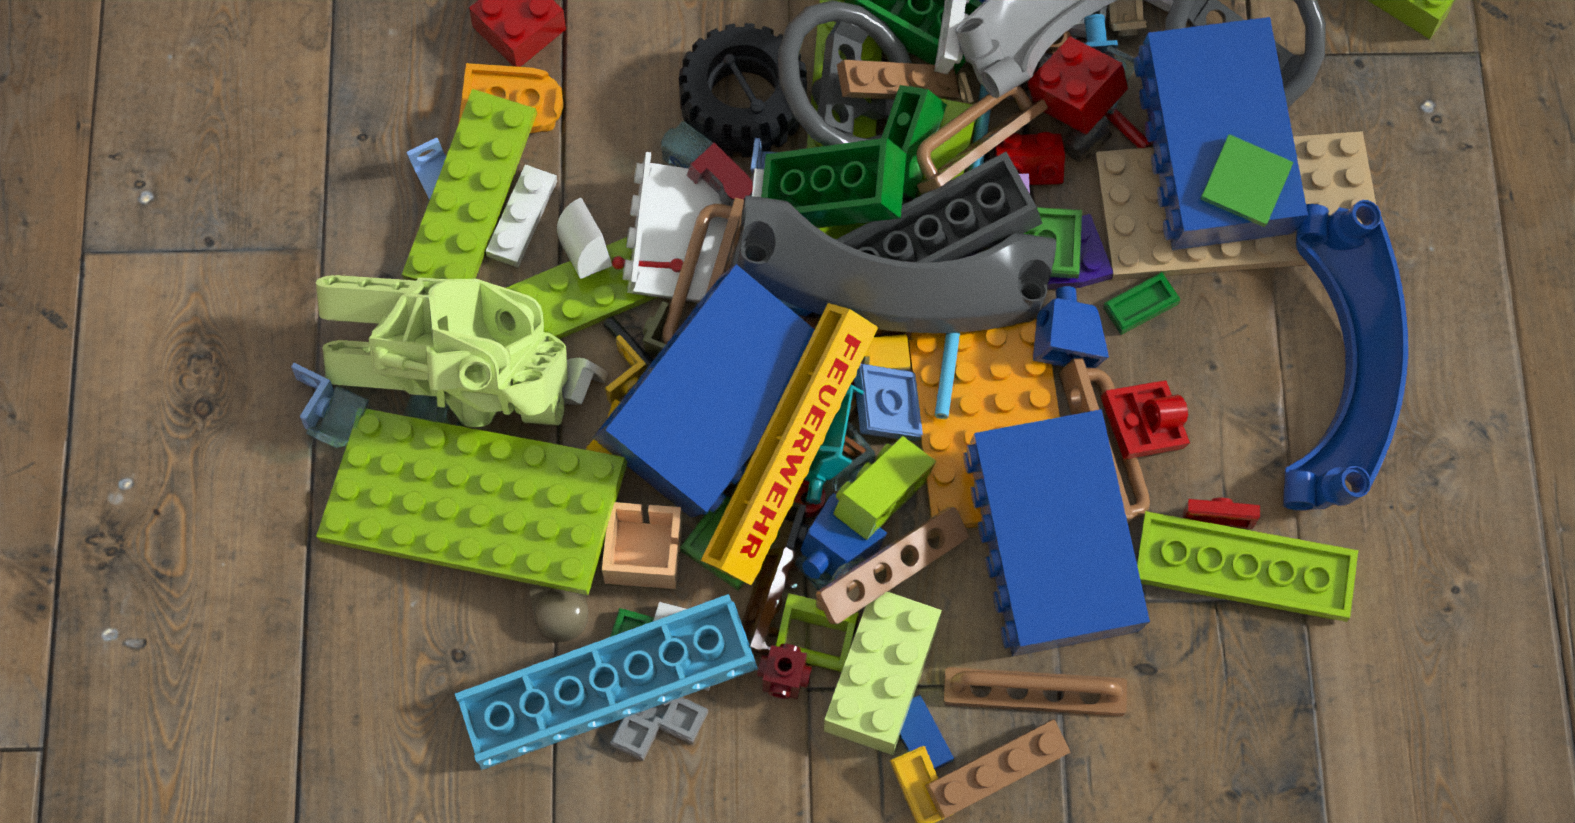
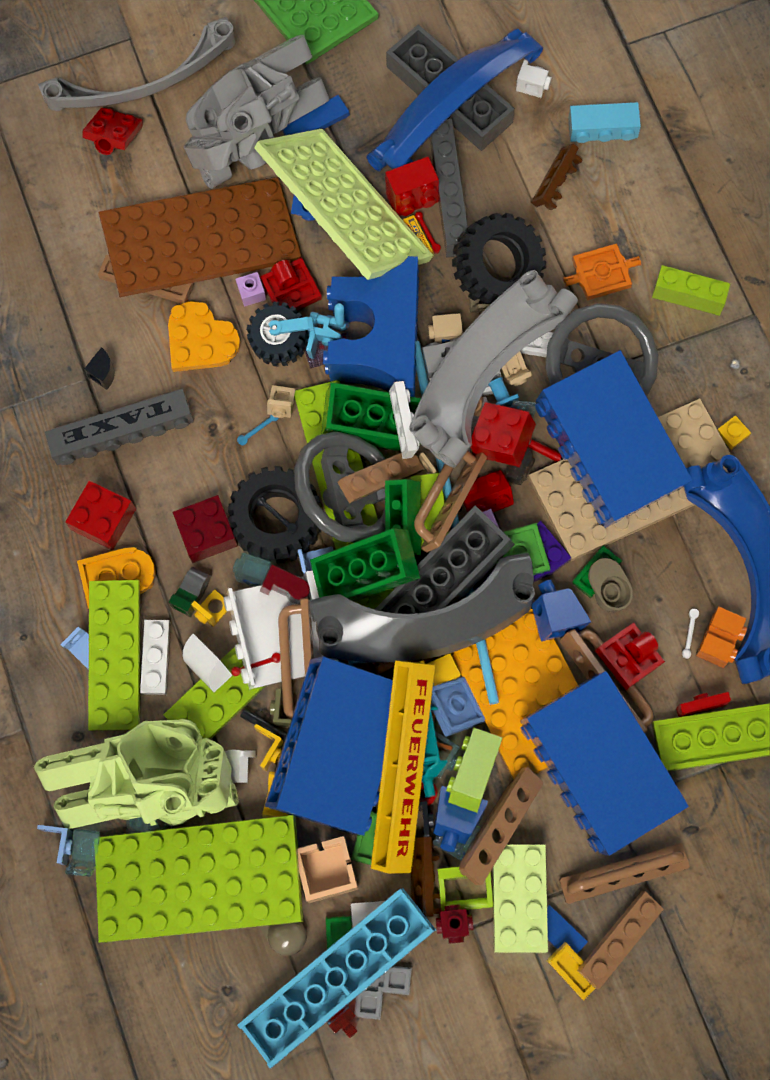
camera: 15 degrees left, 5 degrees up
(593, 741) = (342, 1021): none -> clear red tile
(596, 150) = (190, 590): none -> leg
(603, 180) = (203, 613): none -> yellow bracket
(645, 78) = (205, 529): none -> dark red brick
(1151, 321) = (610, 585): none -> dark tan cap
(1246, 180) = (644, 471): bright green tile -> none
(1251, 400) = (693, 614): none -> white hinge
(1277, 438) = (721, 637): none -> orange brick
(1393, 190) = (733, 432): none -> yellow plate

